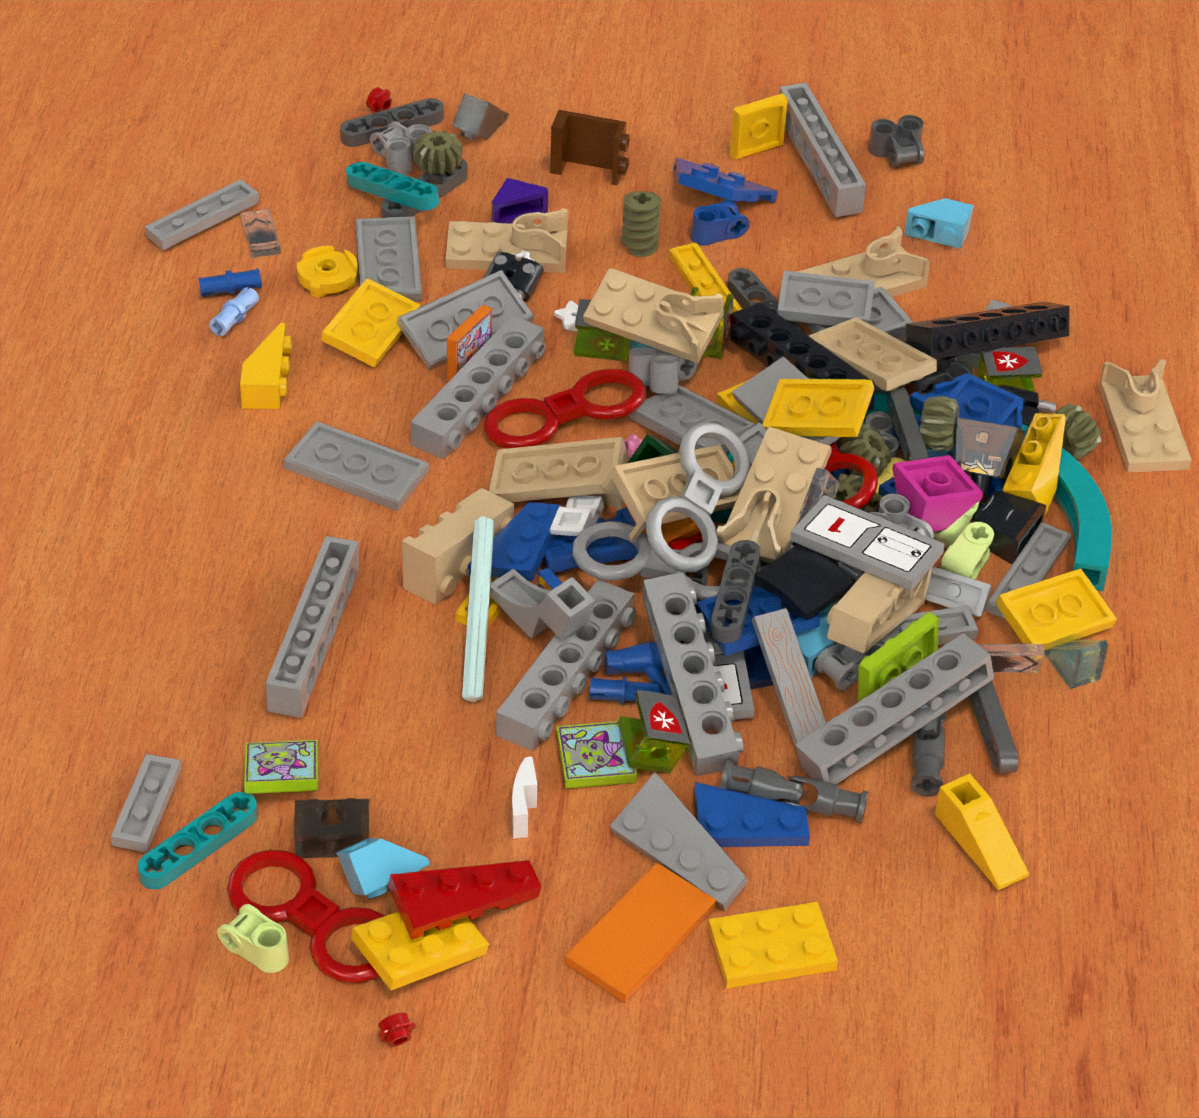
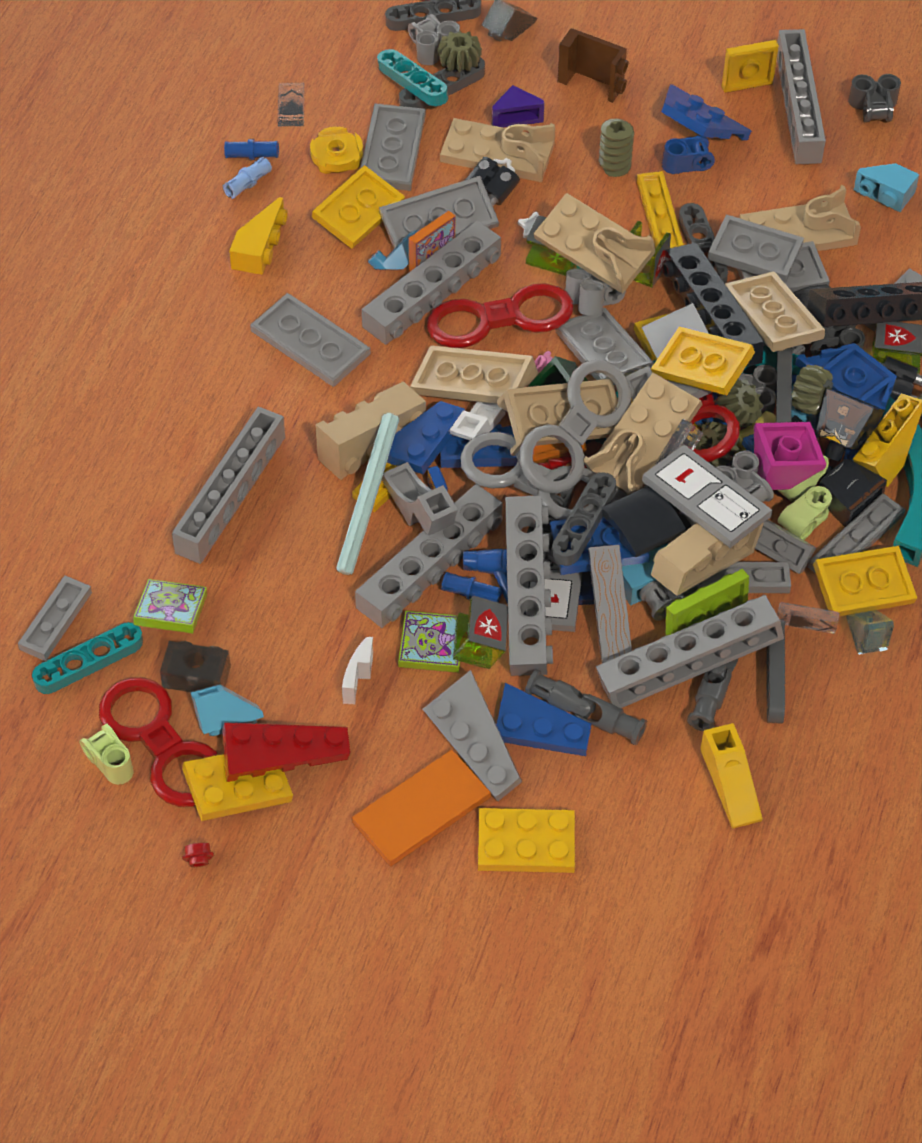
camera: 15 degrees right, 10 degrees up
(201, 214) = (246, 79): light grey plate -> none
(432, 368) = (396, 260): none -> dark azure piece

